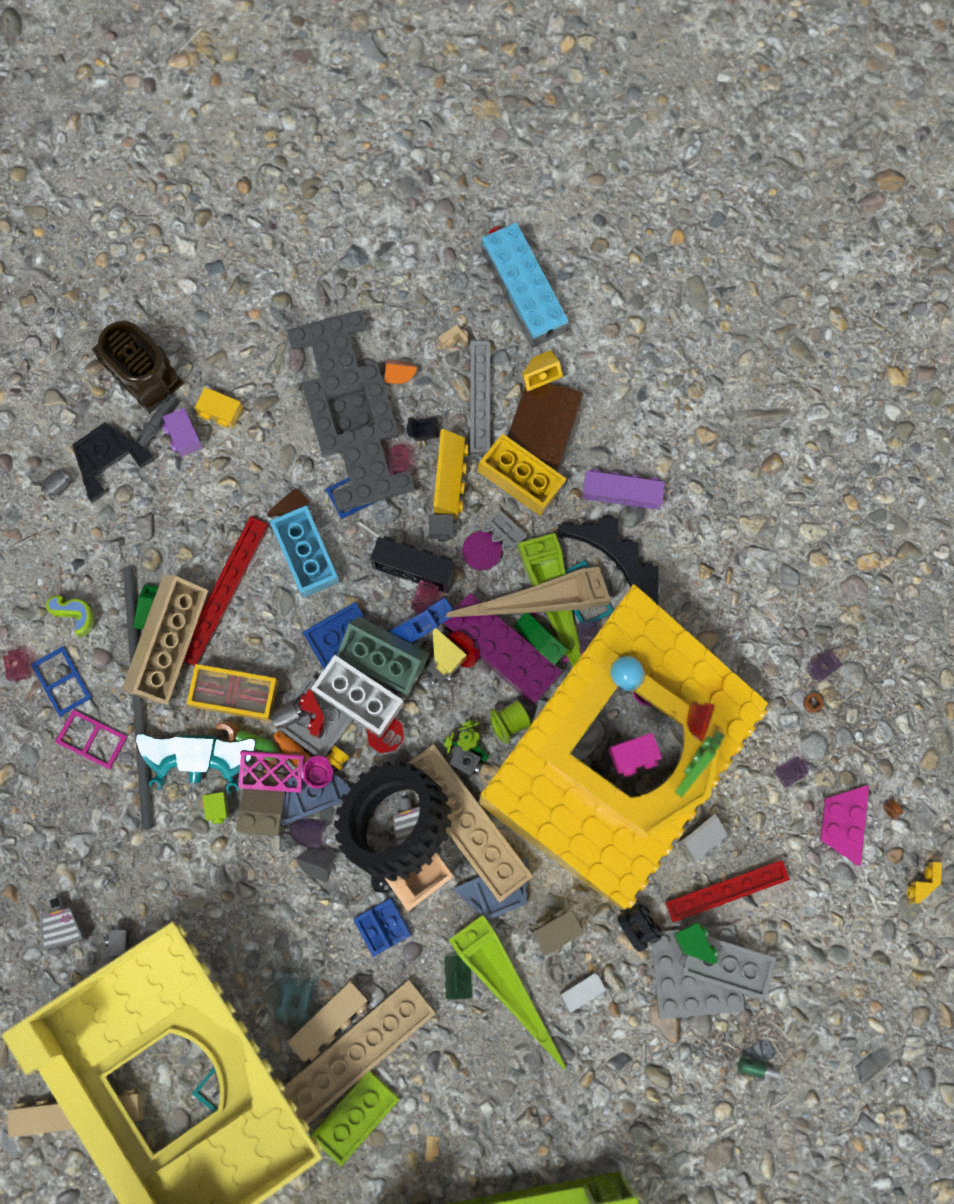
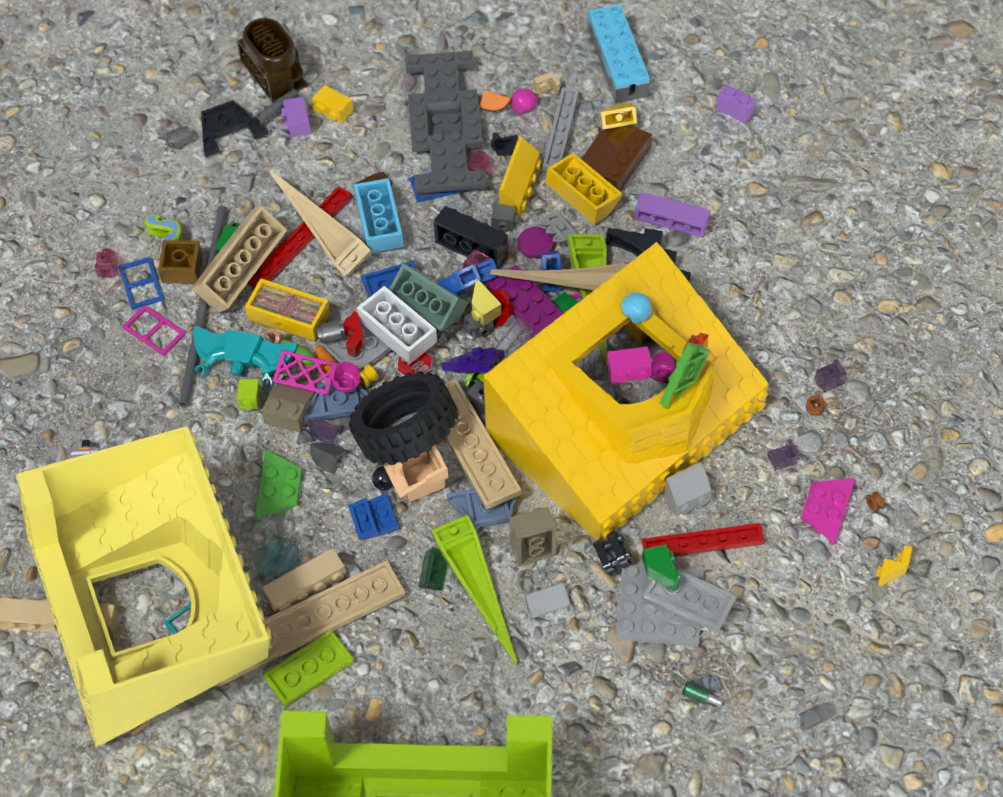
camera: 15 degrees right, 20 degrees down
(99, 652) = (180, 261): none -> pearl gold brick
(267, 593) = (339, 243): none -> tan plate
(273, 908) = (278, 485): none -> bright green wing
(431, 364) = (523, 100): none -> dark pink hair
(452, 722) = (475, 361): none -> dark purple wing
(482, 685) = (512, 335): none -> clear brick
(505, 579) = (551, 261): none -> blue slope
(665, 331) = (736, 104): none -> medium lavender brick

